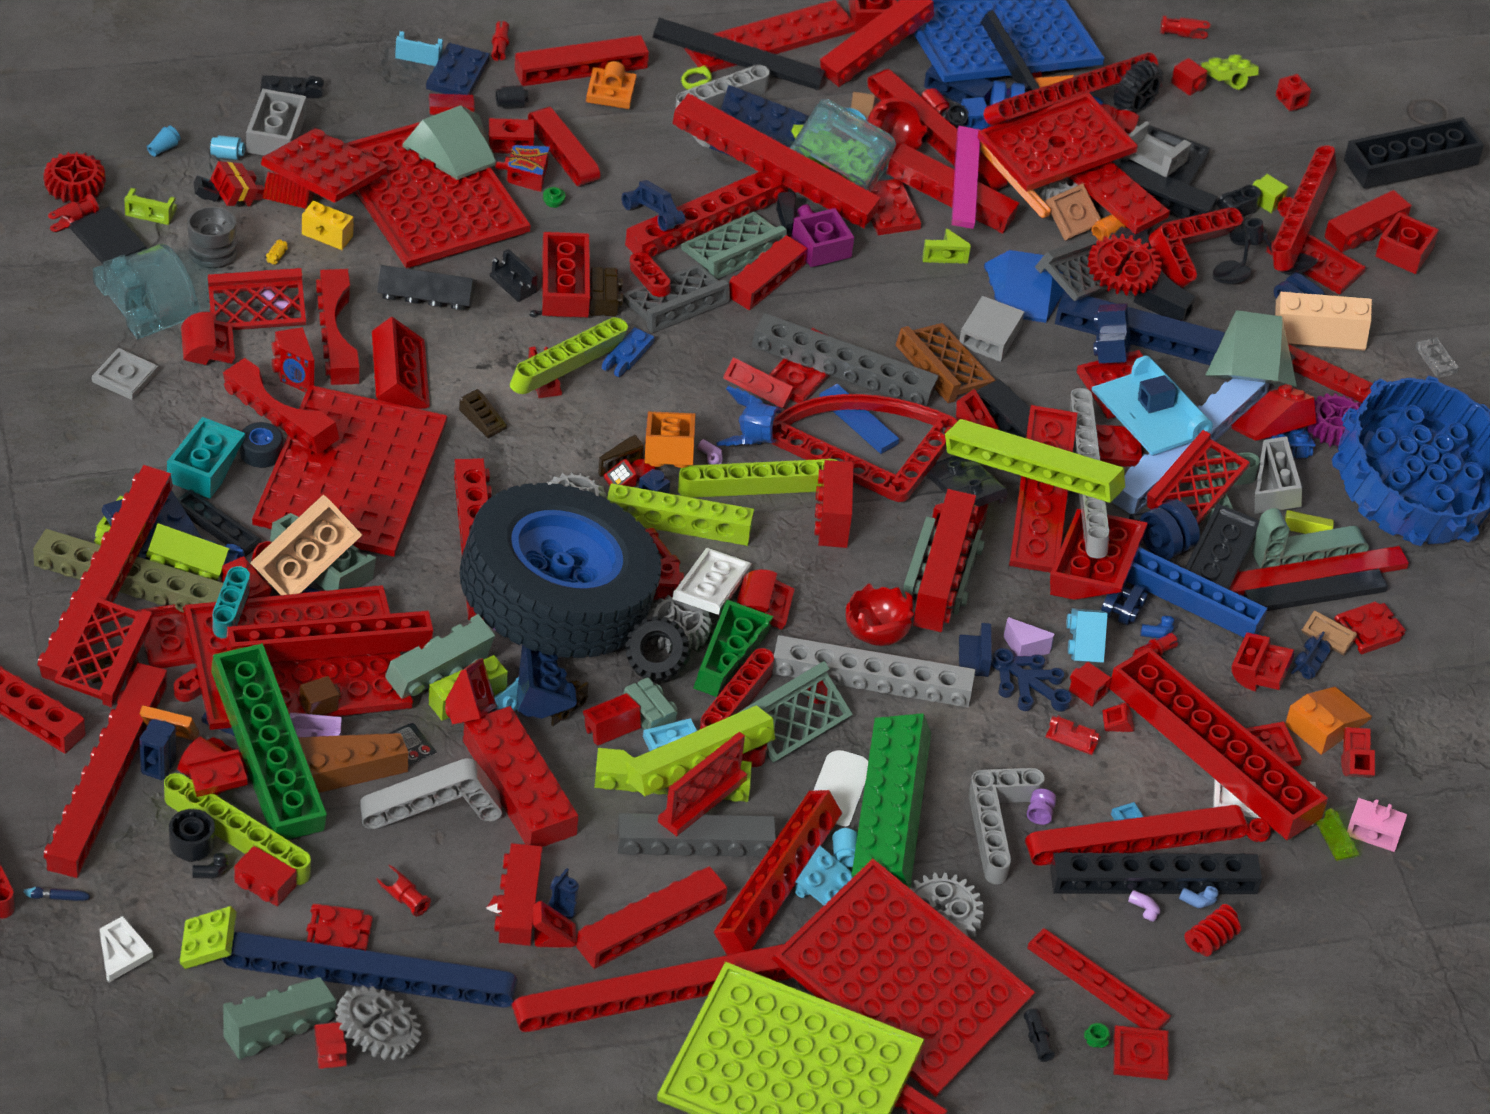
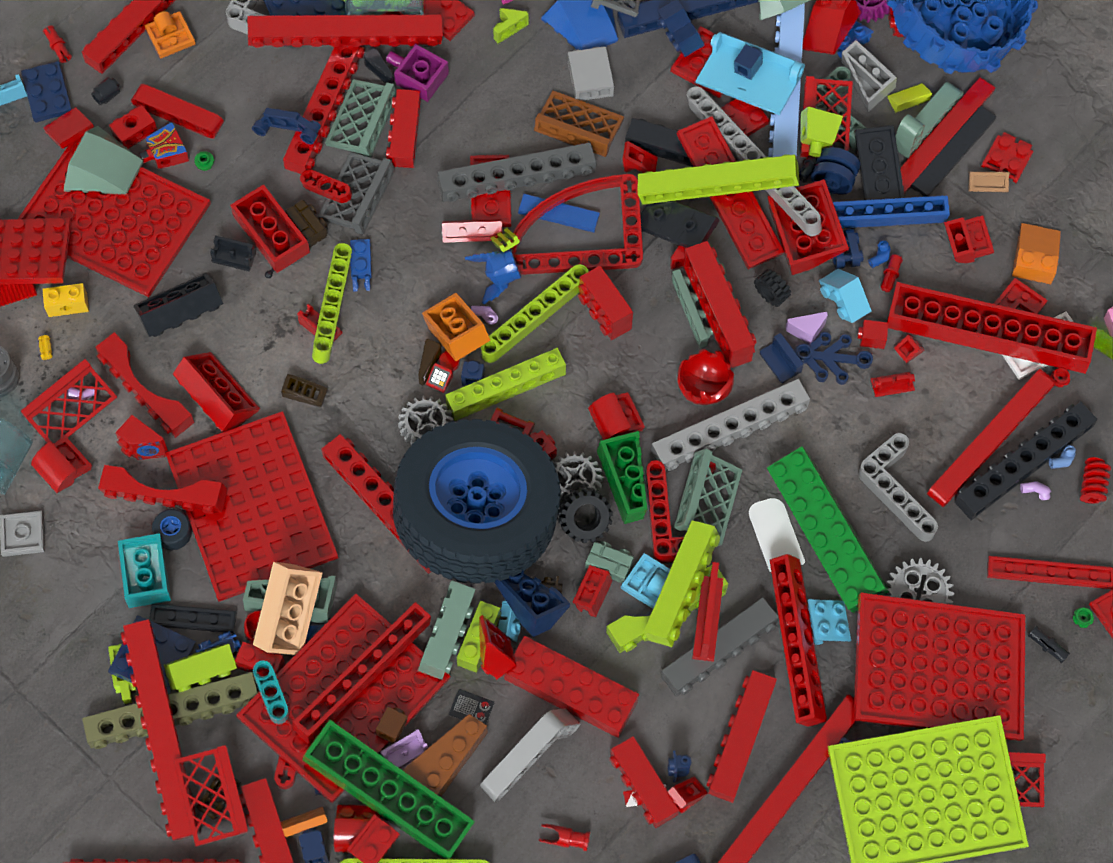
camera: 30 degrees left, 20 degrees up
(168, 638) = (243, 745): red tile -> none
(712, 581) = (572, 427): white tile -> none
(781, 401) = (504, 237): none -> lime tile
(844, 846) = (821, 584): medium azure brick -> none
(1016, 586) = (772, 287): none -> black tyre
(1041, 806) = (917, 458): medium lavender wheel -> none
(1126, 812) = (973, 424): dark azure tile -> none
(1178, 479) = (819, 129): none -> lime torso
(1308, 661) = (989, 202): dark blue hinge -> none
(1357, 757) = (1080, 276): red brick -> none

